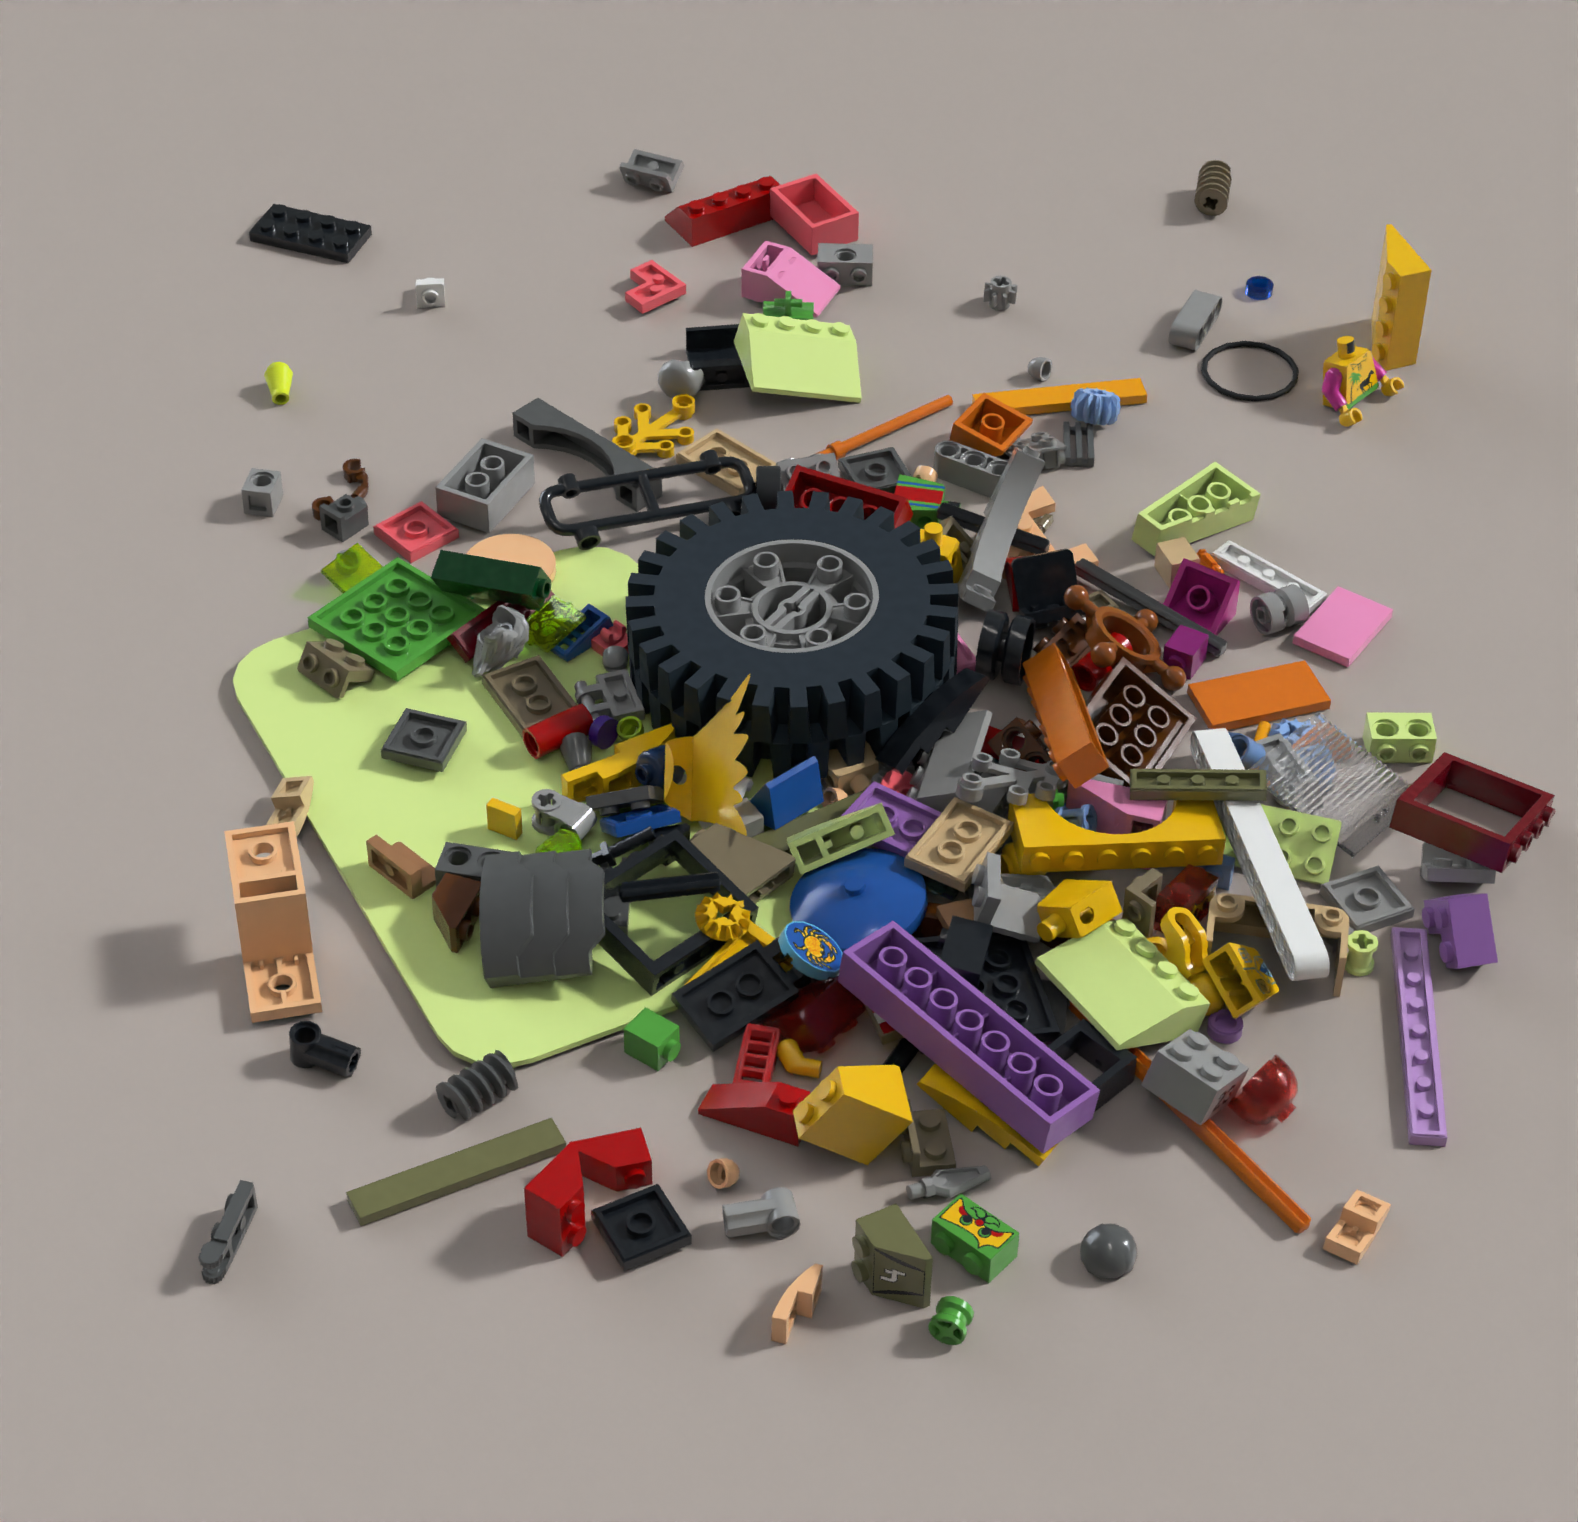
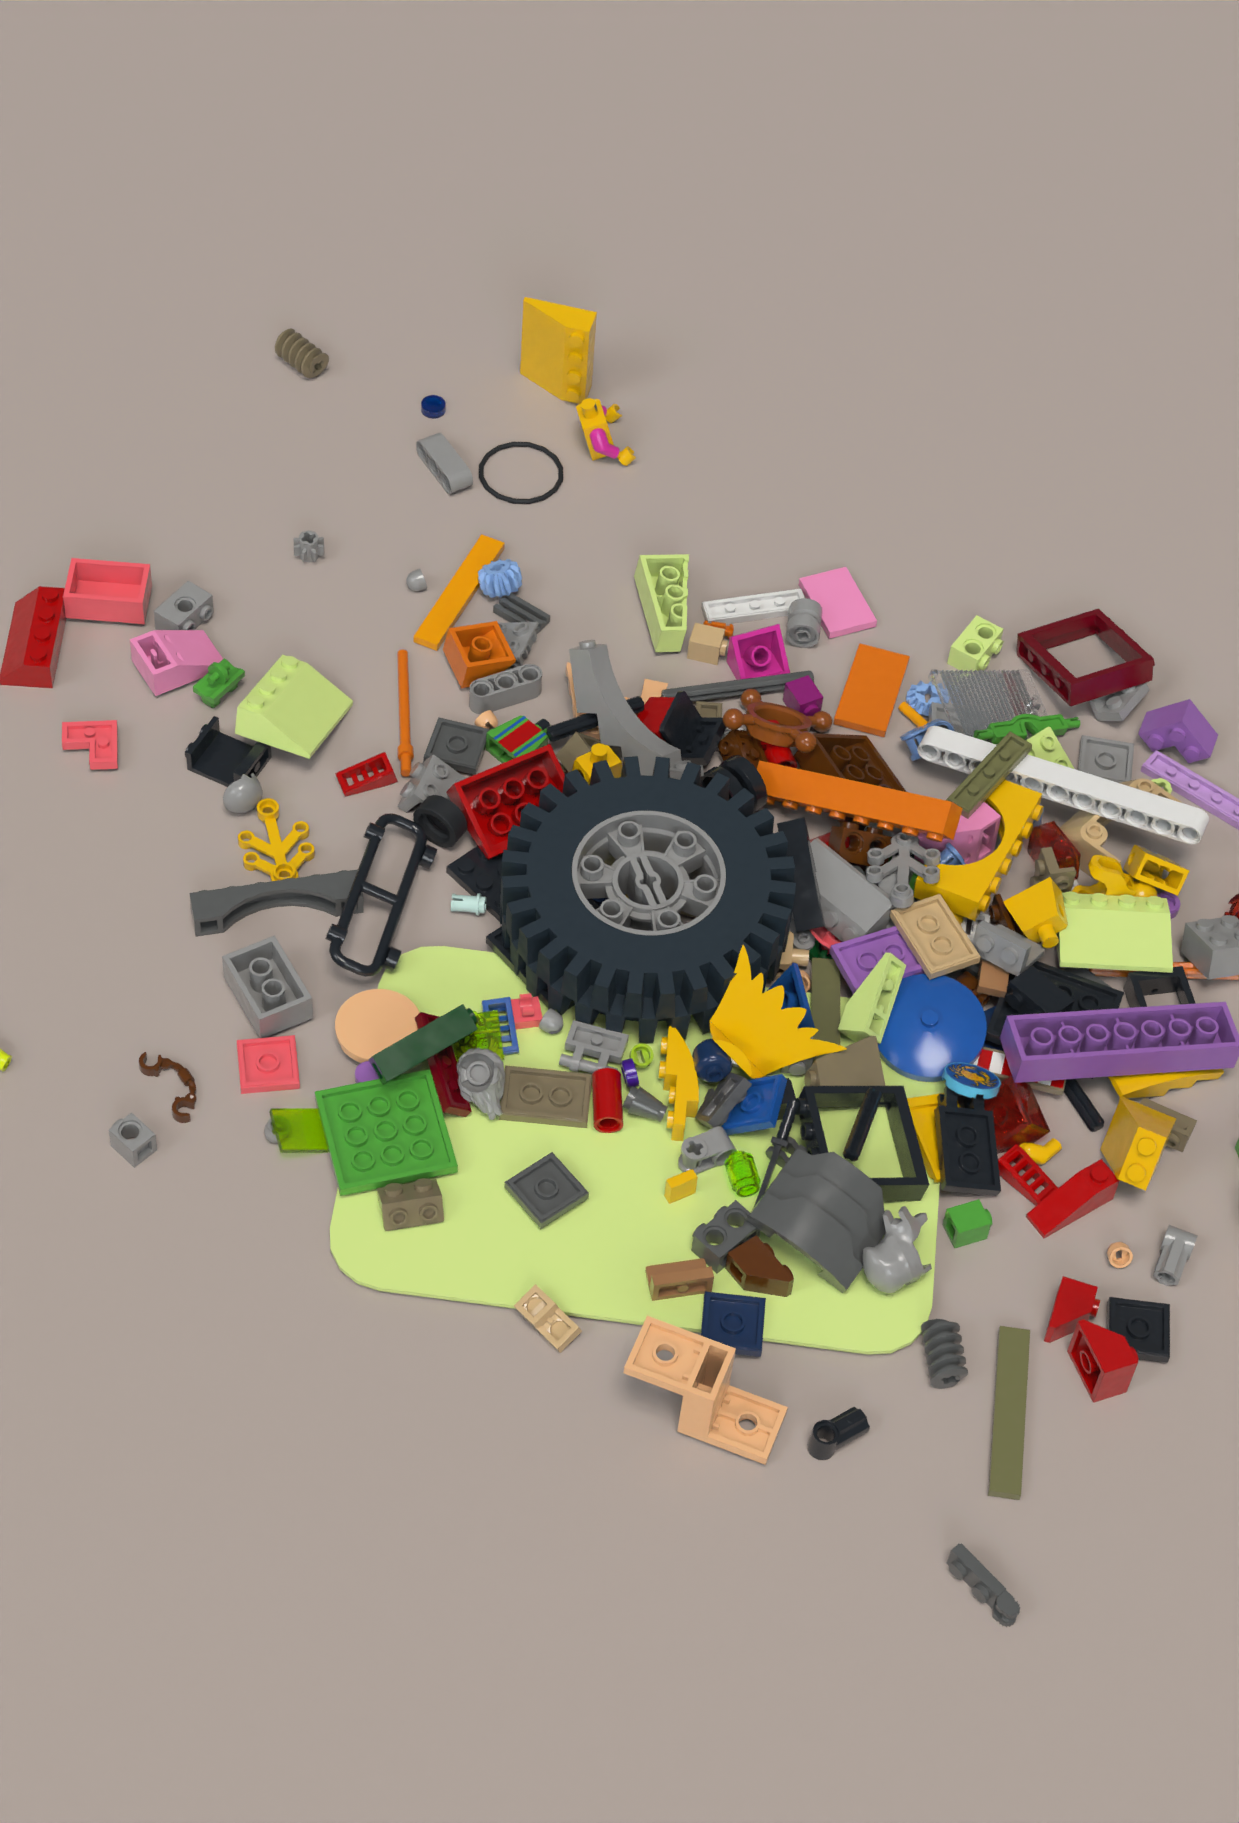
camera: 60 degrees left, 10 degrees up
(344, 517) = (214, 1100): dark grey brick -> none
(385, 925) = (734, 1321): none -> dark blue tile
(544, 987) = (895, 1258): none -> light grey piece
(722, 928) = (896, 1118): yellow gear -> none
(724, 445) = (344, 824): tan tile -> none
(787, 441) = (376, 781): none -> red slope
(949, 1182) = (1206, 1134): light grey piece -> none
(1352, 830) = (1031, 722): none -> bright green piece

